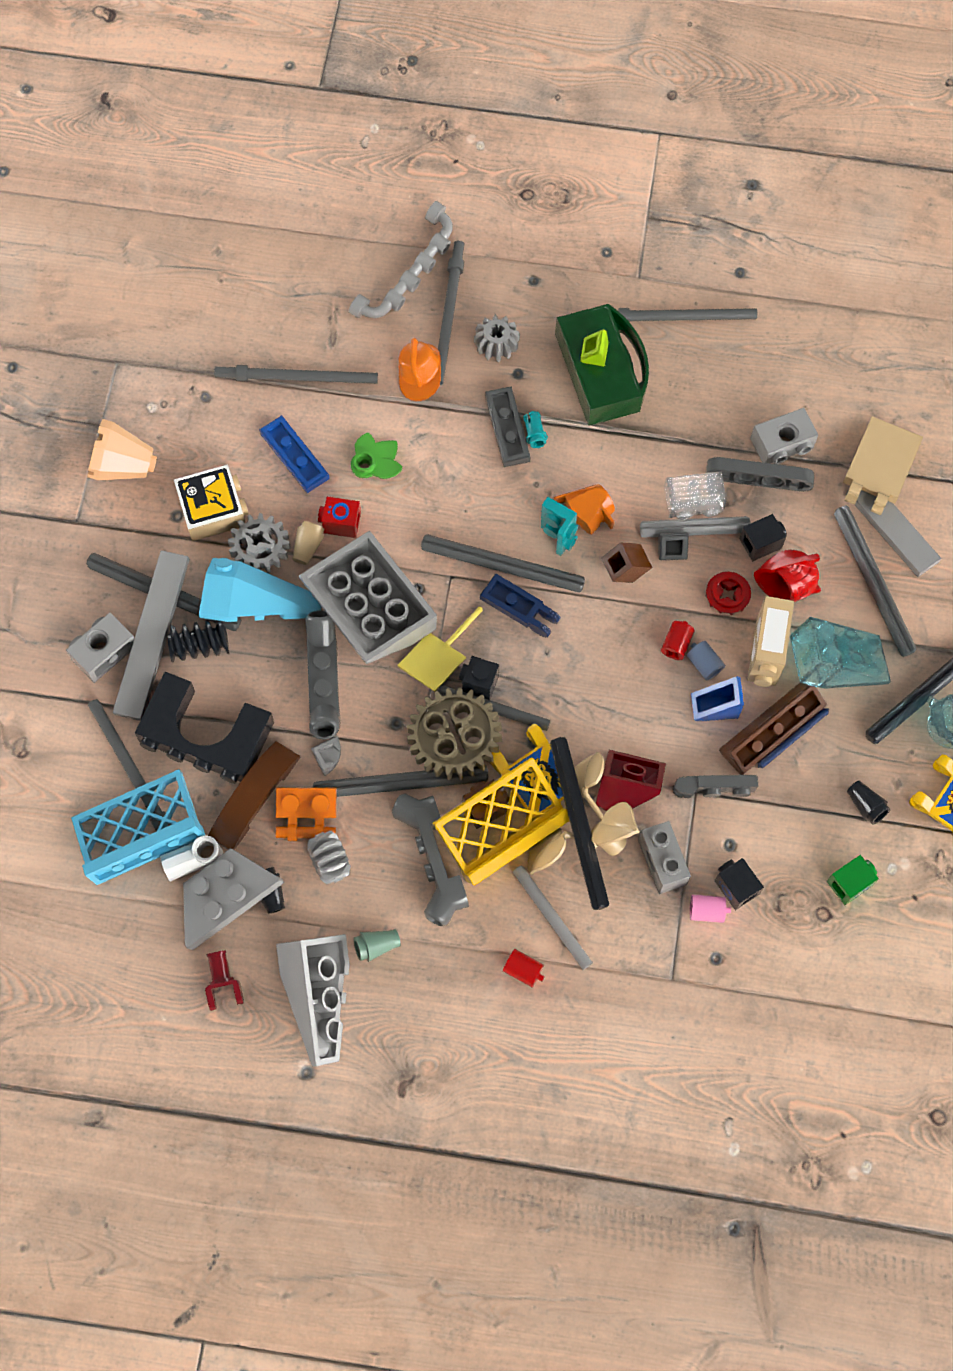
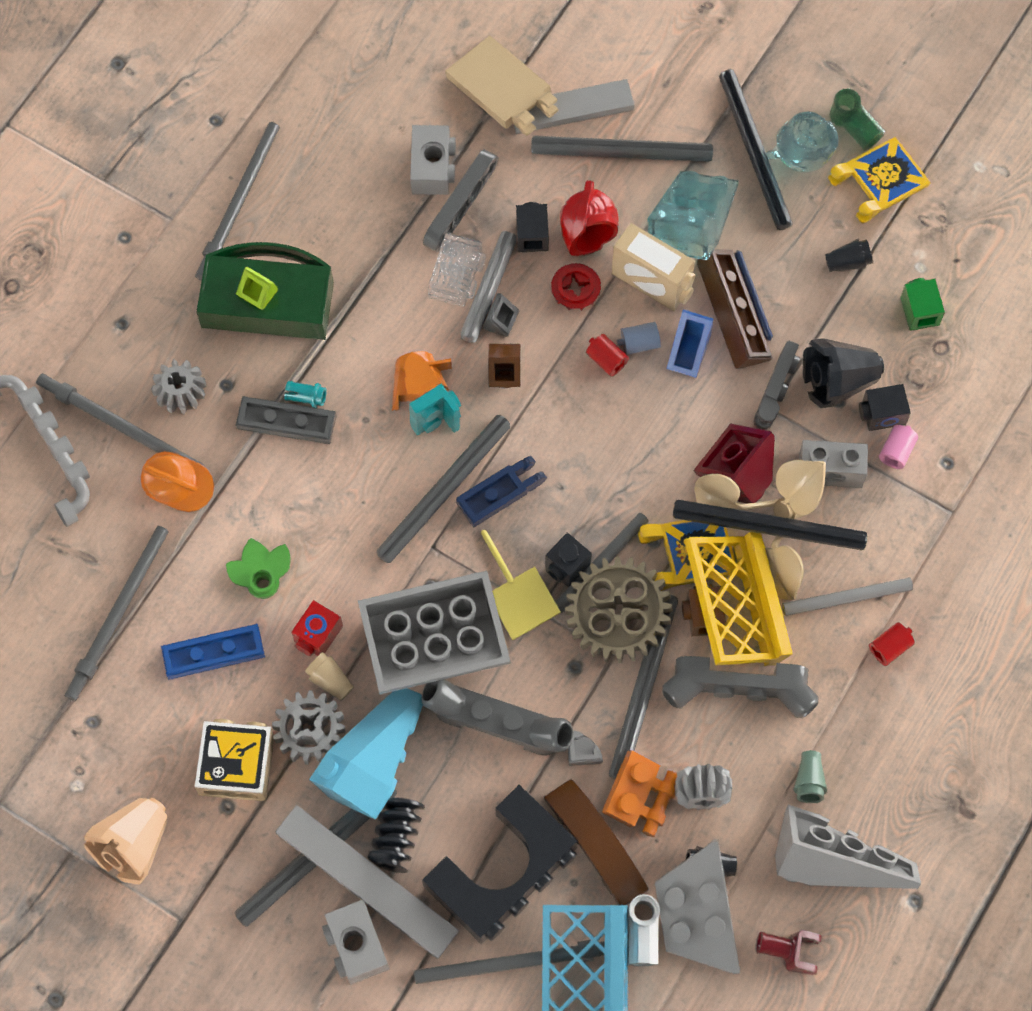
camera: 65 degrees left, 0 degrees up
(754, 832) = (839, 370): none -> black cone

